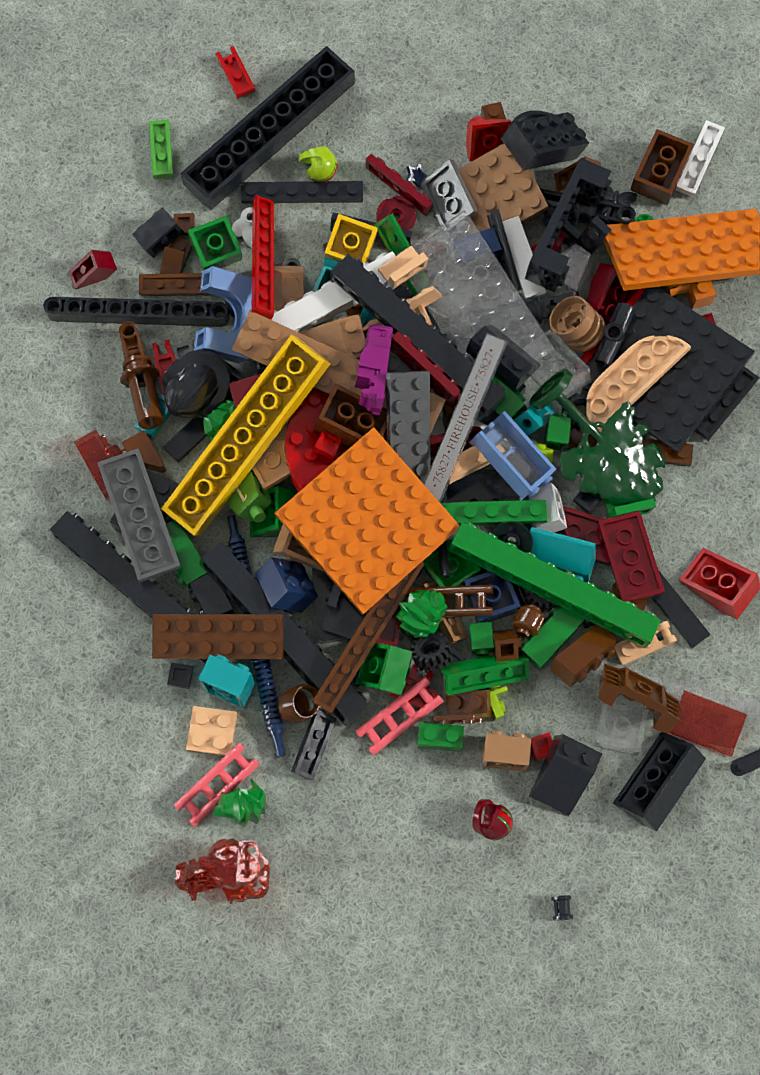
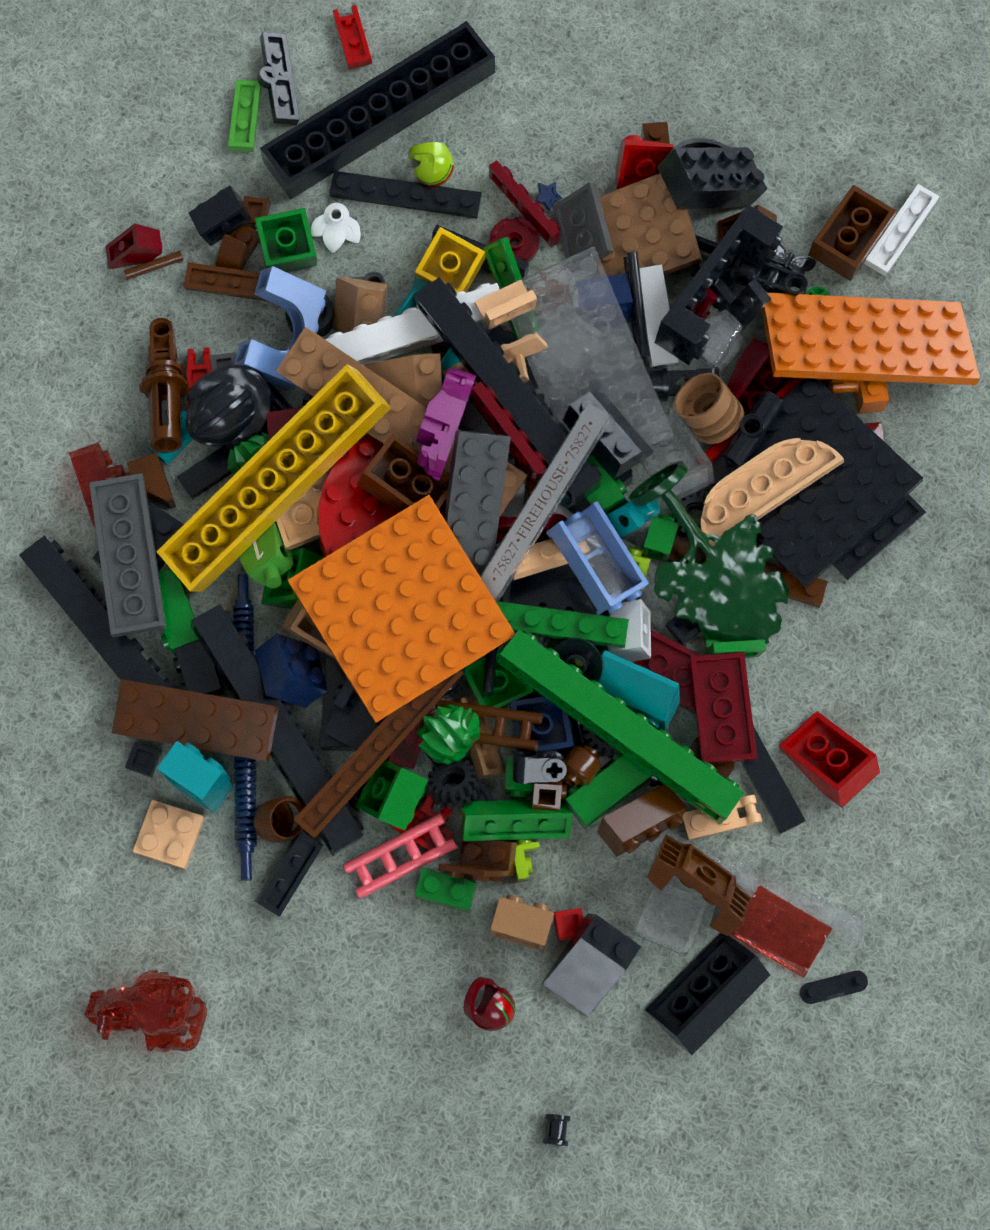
camera: 10 degrees right, 0 degrees up
(110, 280) = (153, 265): none -> reddish brown piece
(128, 306) = (169, 299): black beam -> none
(182, 114) = (278, 78): none -> hinge
(202, 784) = (156, 918): coral bar -> none
(242, 805) = (185, 932): green hair -> none
(263, 257) = (338, 266): red tile -> none
(327, 444) = (370, 506): red plate -> none
(493, 627) = (535, 765): none -> black piece

